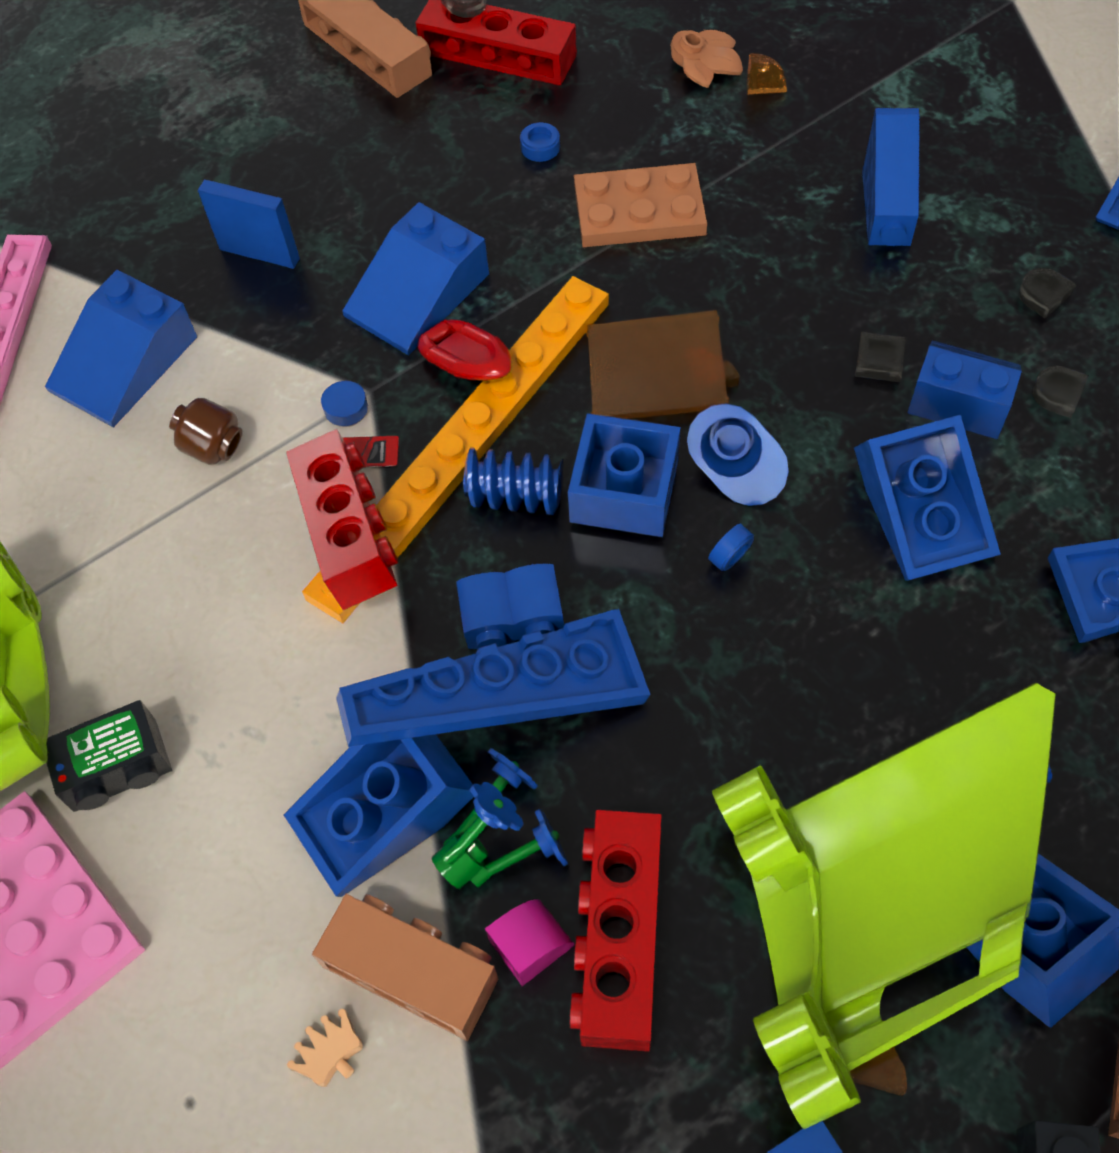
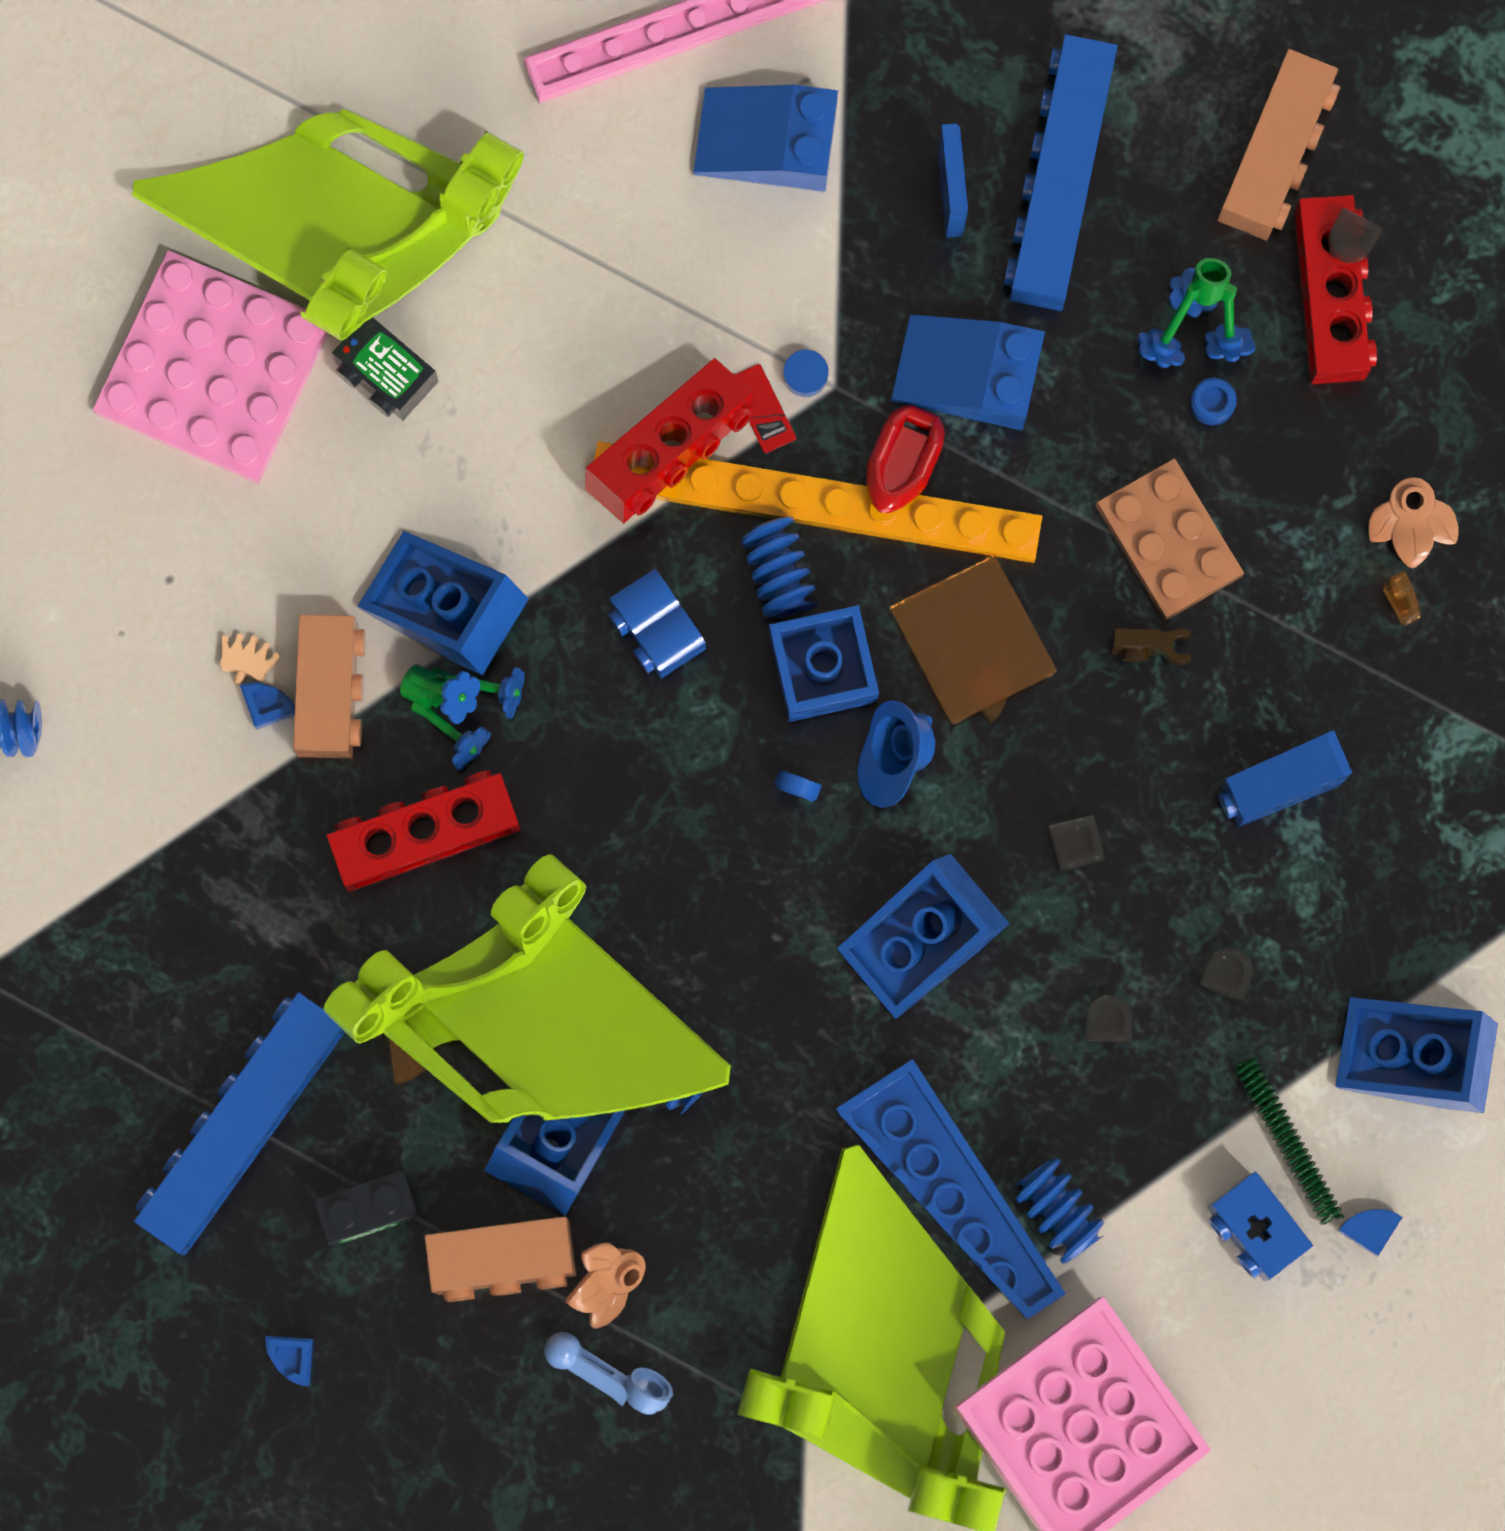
camera: 60 degrees right, 20 degrees up
(205, 431) = (714, 269): reddish brown head -> none
(297, 165) = (1062, 173): none -> blue brick
(390, 1048) = (267, 704): none -> blue tile
(448, 78) = (1192, 293): none -> plant
(528, 939) = (387, 767): dark pink brick -> none
(539, 677) = (595, 679): blue wing -> none
(722, 243) = (1138, 644): none -> dark brown plate
(965, 385) = (1073, 931): blue slope -> none

